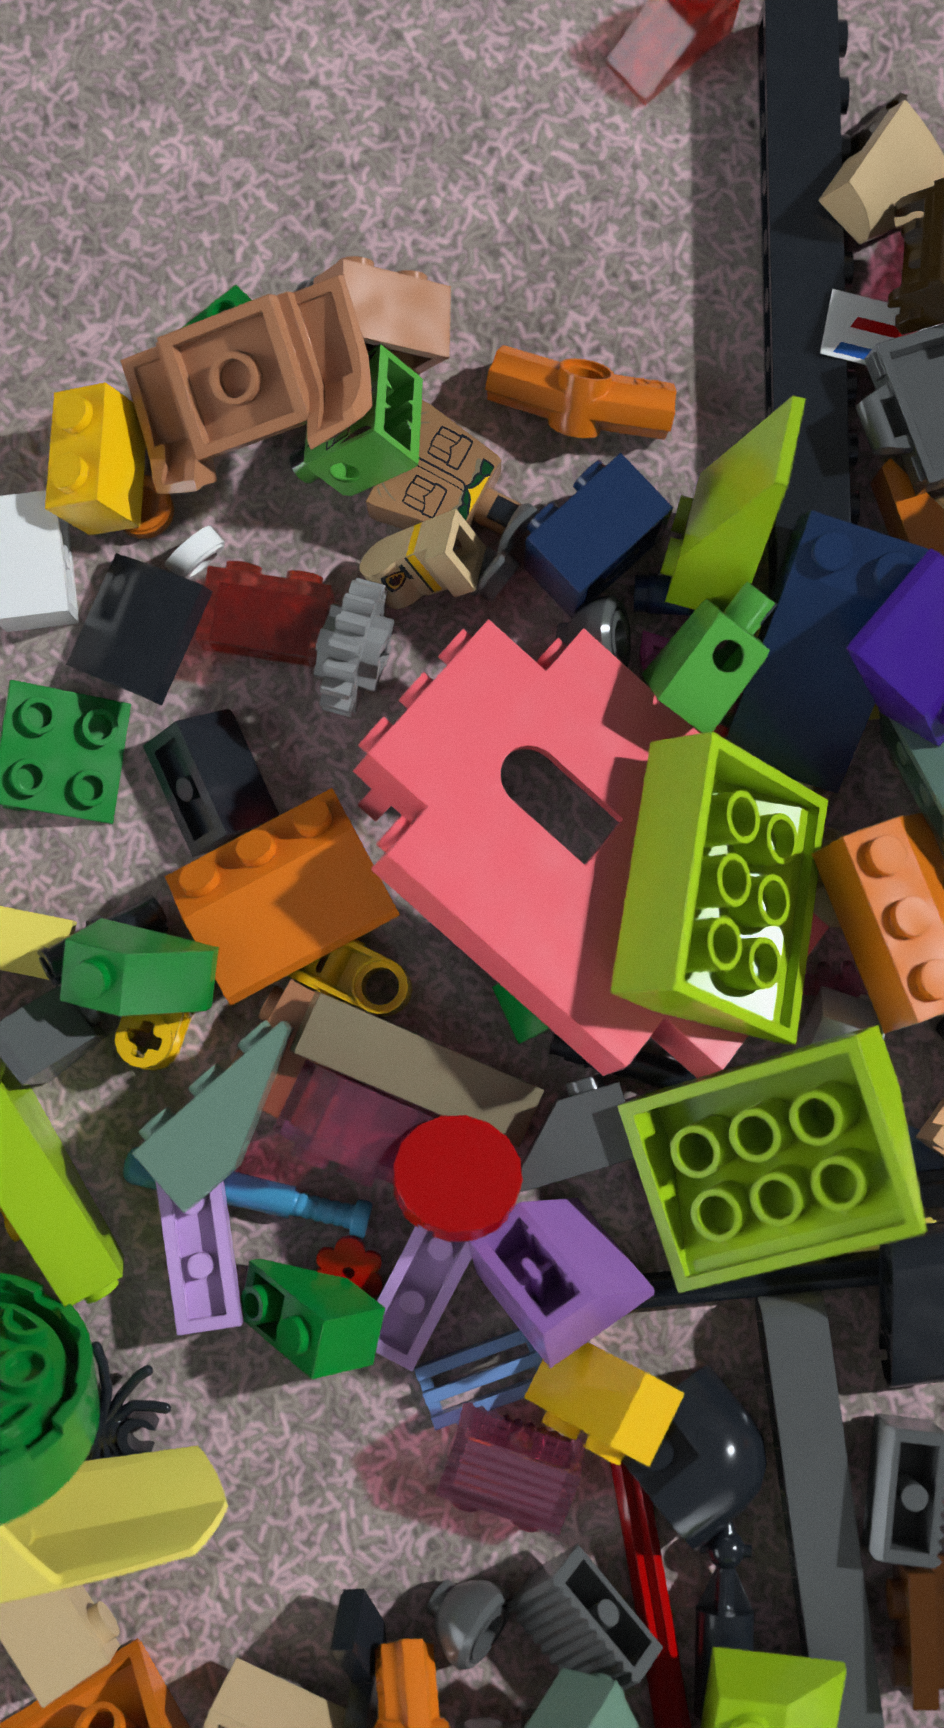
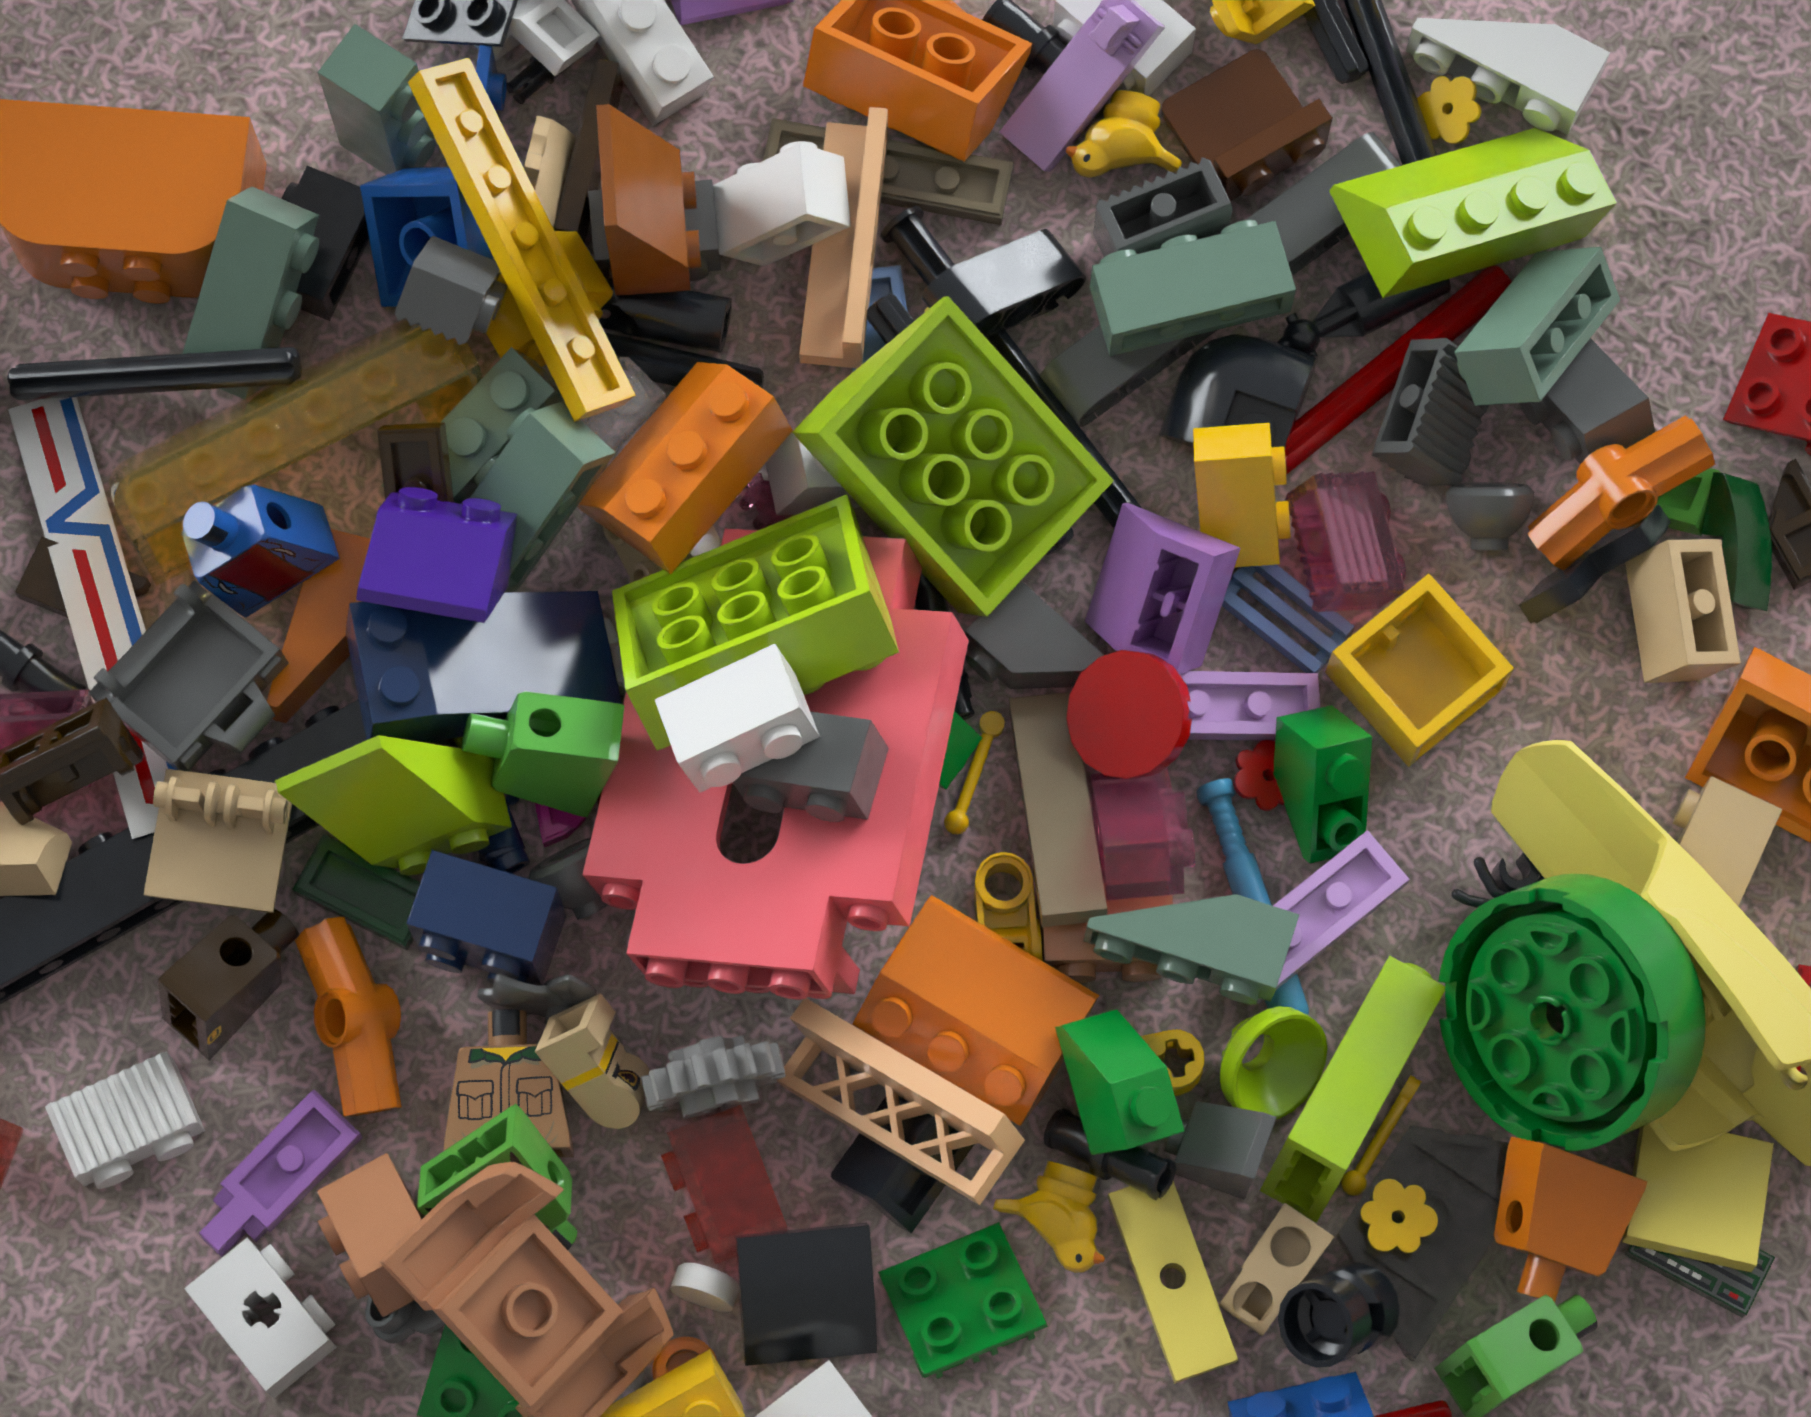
camera: 120 degrees left, 10 degrees down
(81, 873) = (1061, 1214): none -> yellow animal
(98, 1120) = (1284, 1068): none -> lime piece
(252, 801) = (909, 1080): none -> light nougat fence
(355, 1463) = (1418, 669): none -> yellow piece
(400, 175) = (272, 1354): none -> white brick
(488, 275) = (279, 1172): none -> medium lavender hinge
(531, 1062) = (991, 726): none -> yellow hinge
(557, 856) = (825, 776): none -> dark grey brick
(601, 177) = (125, 1121): none -> white brick
(623, 806) = (737, 719): none -> white brick
(664, 282) = (224, 979): none -> dark brown torso
(678, 463) = (360, 892): none -> dark green tile
(789, 348) = (217, 841): none -> tan hinge
(822, 1477) = (1191, 286): none -> sand green brick

